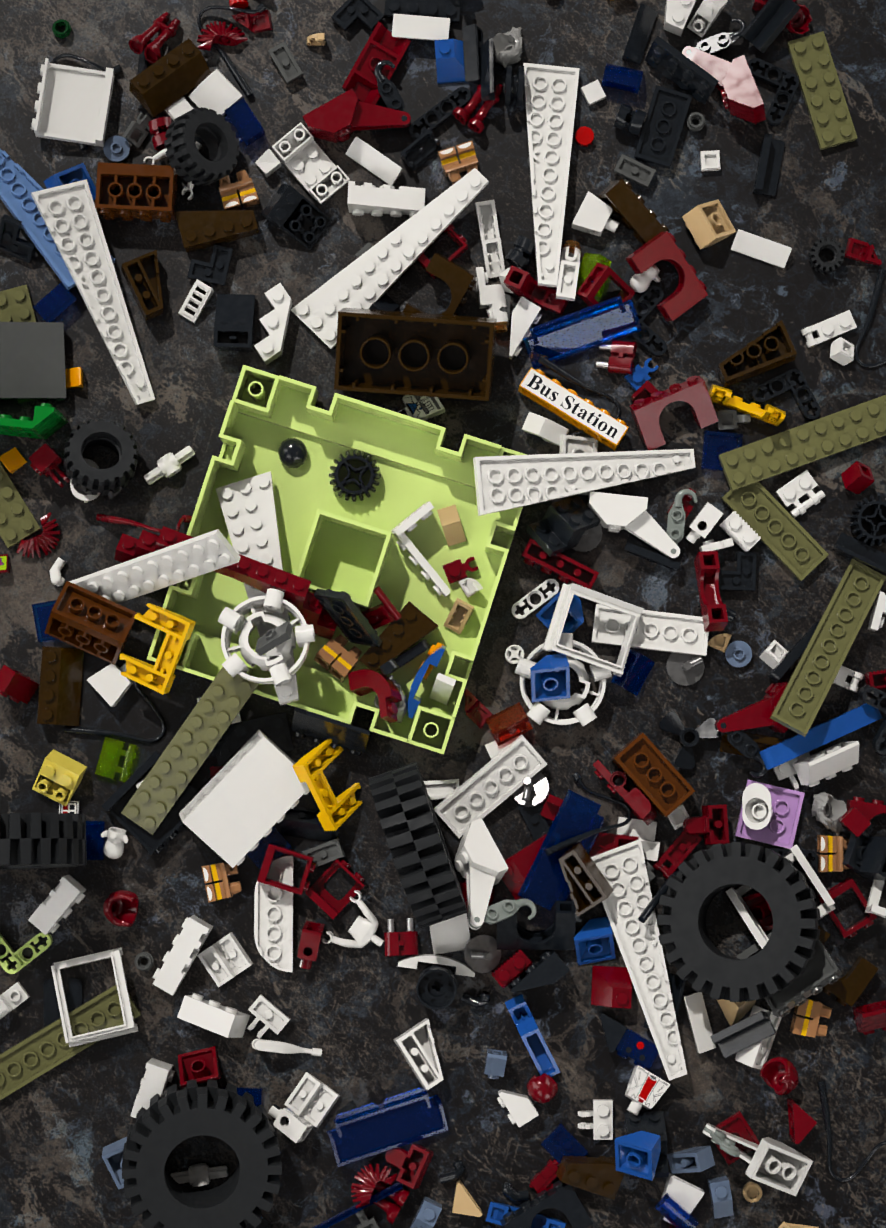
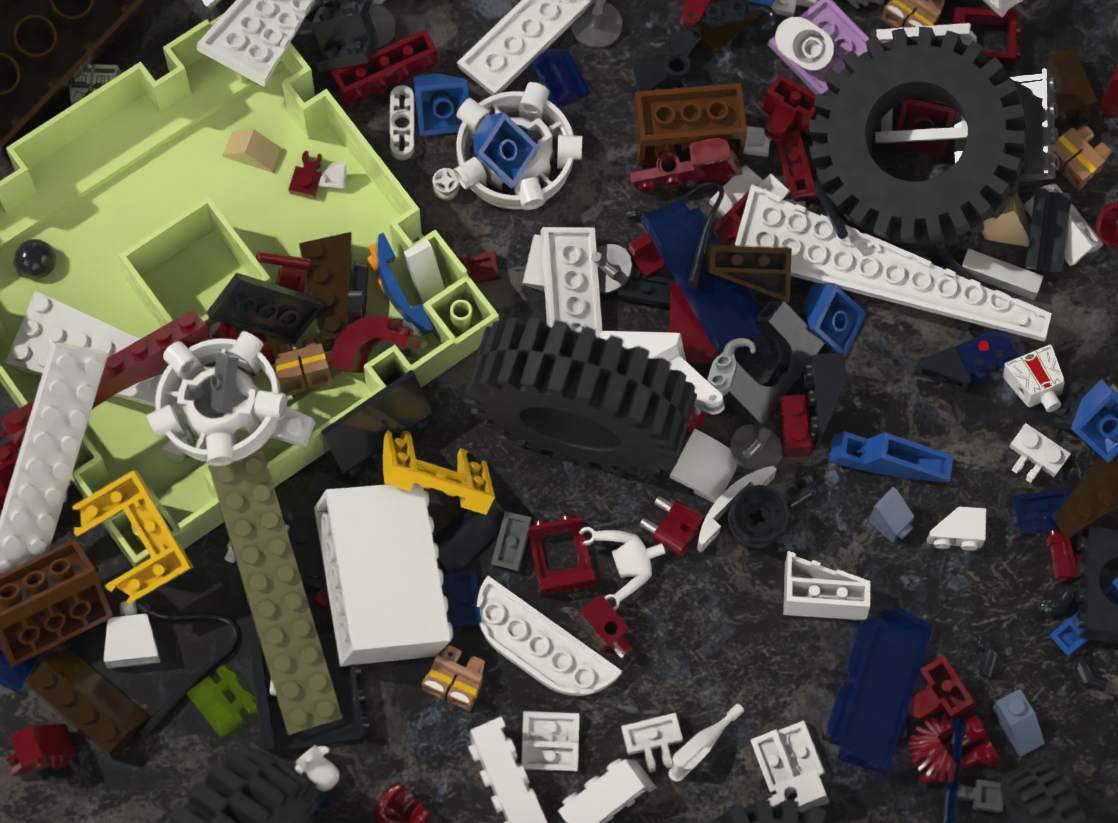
camera: 60 degrees left, 15 degrees down
(59, 777) = (184, 769): light yellow slope -> none
(267, 862) = (475, 606): dark red window -> none
(347, 481) = (134, 213): black gear -> none
(415, 556) = (254, 204): white bracket -> none
(459, 616) = (357, 207): tan slope -> none
(464, 1202) = (1028, 664): tan slope -> none
(508, 724) = (518, 239): clear red brick -> none
(542, 1088) = (957, 487): dark red hair -> none
(560, 615) = (445, 96): white piece -> none
(611, 987) = (896, 336): dark red slope -> none

